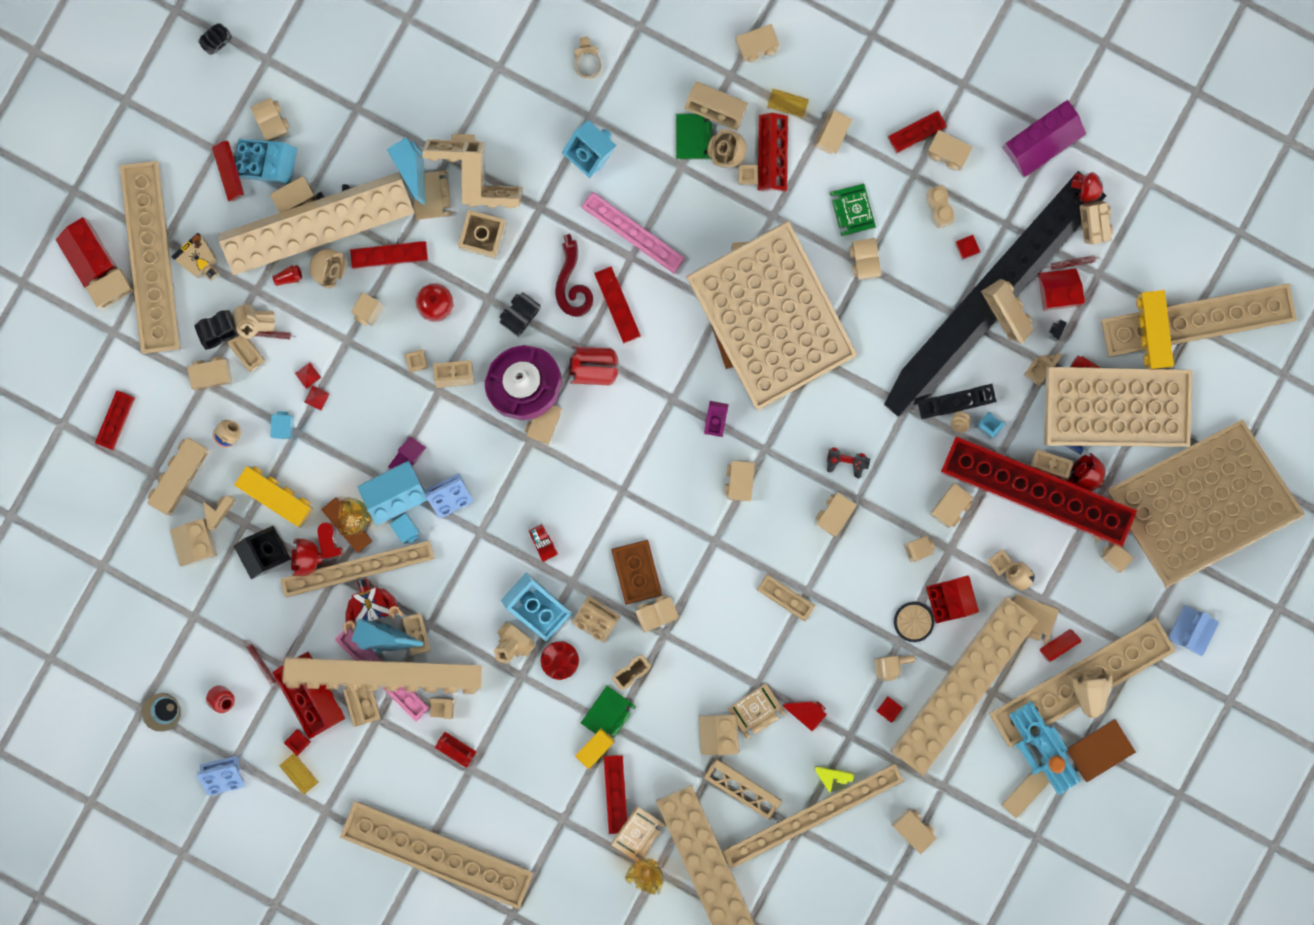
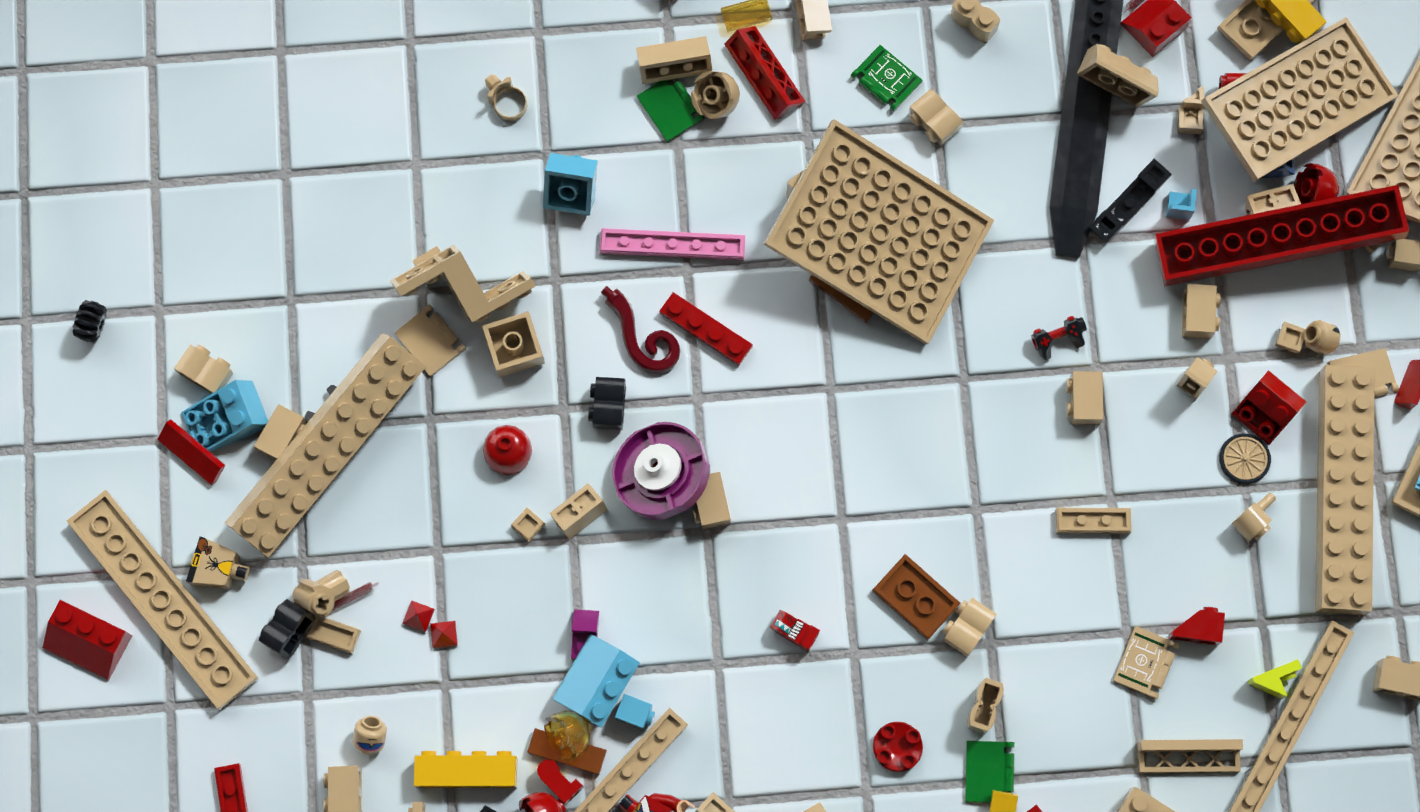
camera: 35 degrees left, 10 degrees down
(109, 288) = (137, 660): tan brick -> none
(209, 374) = (308, 682): tan brick -> none
(282, 426) = (425, 688): medium azure brick -> none
(288, 276) = (329, 521): red cone -> none
(327, 267) = (366, 484): tan cylinder -> none
(366, 309) = (439, 501): tan brick -> none
(389, 255) = (425, 431): red plate -> none
(411, 166) = (380, 314): medium azure slope -> none
(448, 496) = (659, 645): light blue bracket -> none
(512, 643) = (835, 759): tan piece -> none
(536, 607) = (833, 704): medium azure slope -> none
(593, 356) = (723, 406): red cylinder -> none
(596, 619) = (908, 675): tan bracket -> none
(716, 418) = (891, 378): magenta slope -> none
(719, 734) = (1124, 712): tan slope -> none
(740, 481) = (961, 427): tan brick -> none
(748, 175) = (754, 109): tan plate -> none
(889, 709) = (1284, 567): red tile -> none
(960, 421) = (1148, 219): tan wheel -> none
(967, 247) = (1030, 41): red plate -> none
(1057, 329) = (1181, 65): black plate -> none

